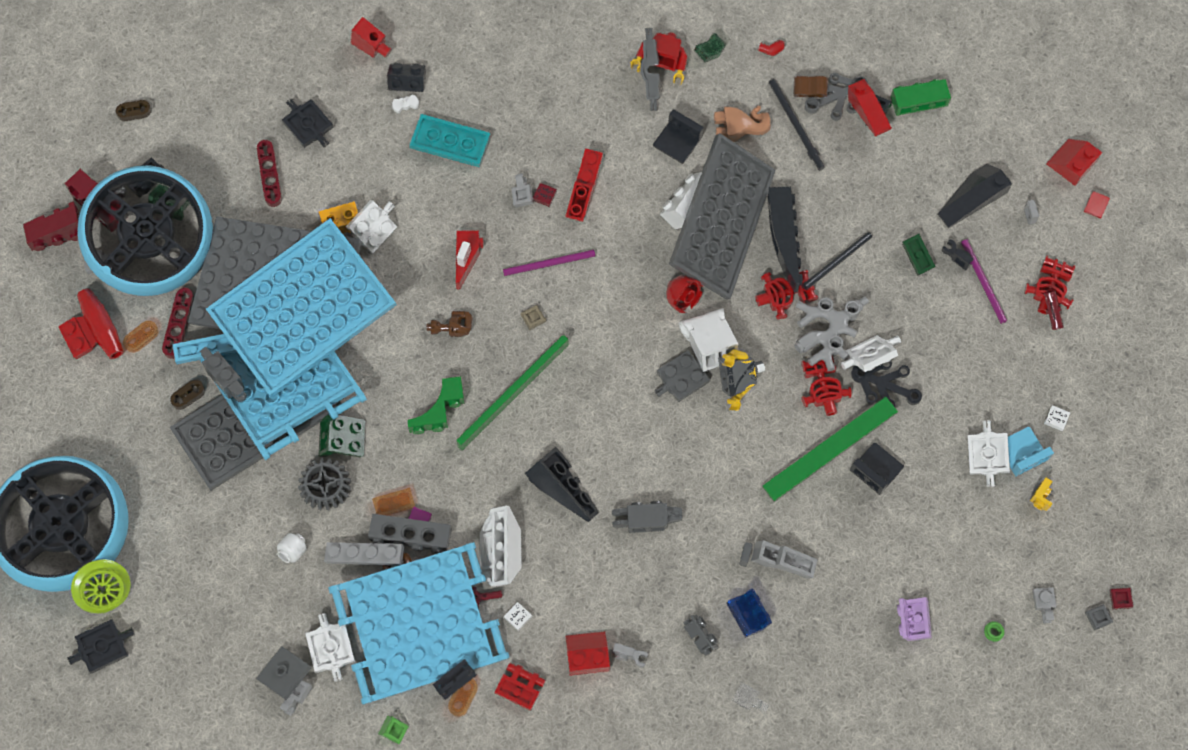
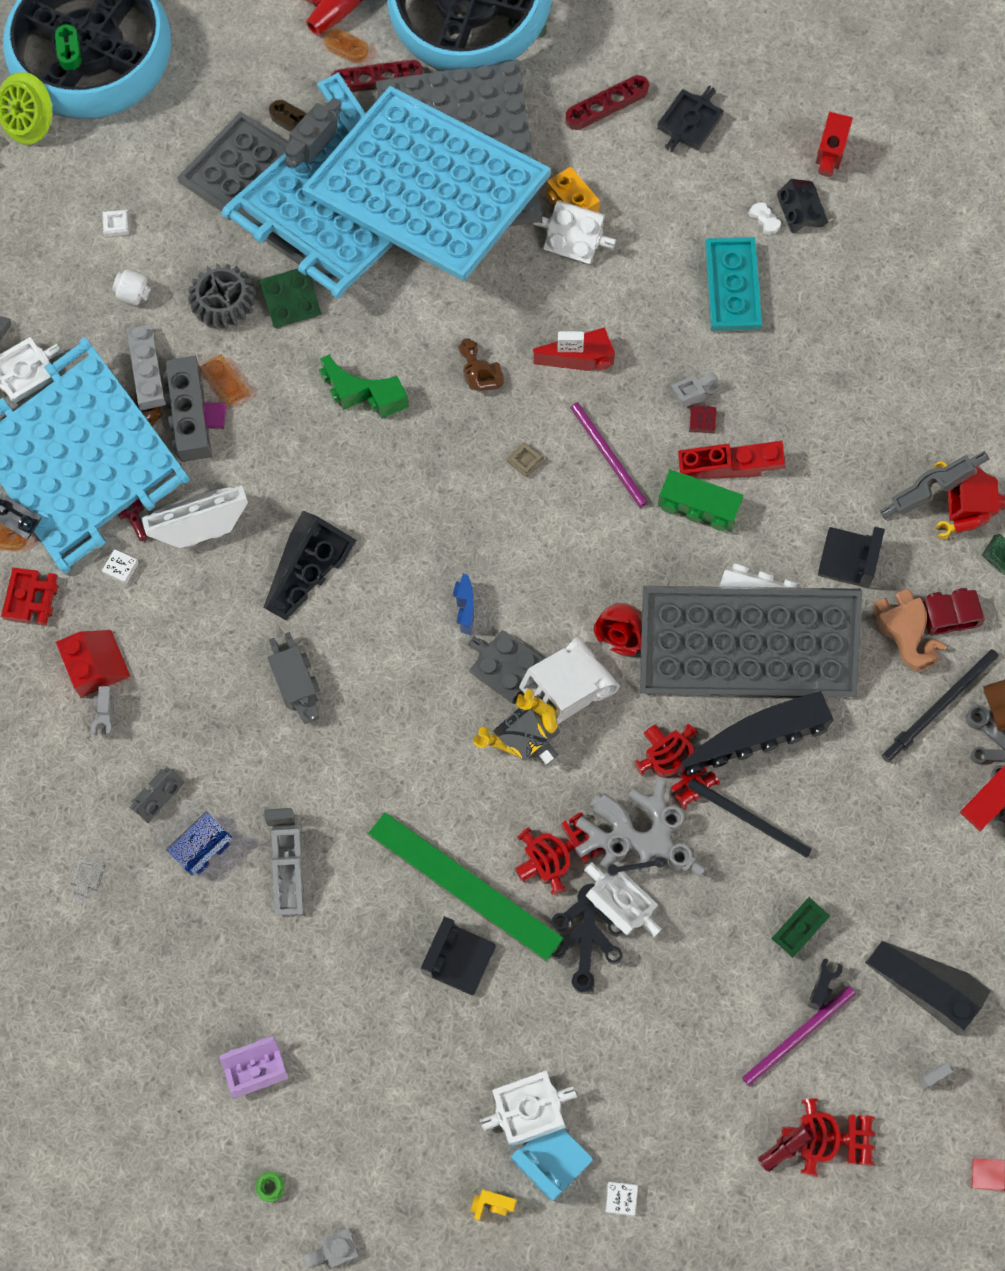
camera: 75 degrees right, 0 degrees up
(69, 528) = (72, 46): none -> green beam
(227, 547) = (115, 223): none -> white tile
(512, 392) = (412, 466): green tile -> none
(606, 215) = (700, 501): none -> green brick
(624, 385) = (464, 597): none -> blue slope
(737, 91) = (953, 611): none -> dark red brick
(851, 350) = (614, 869): none -> black hinge

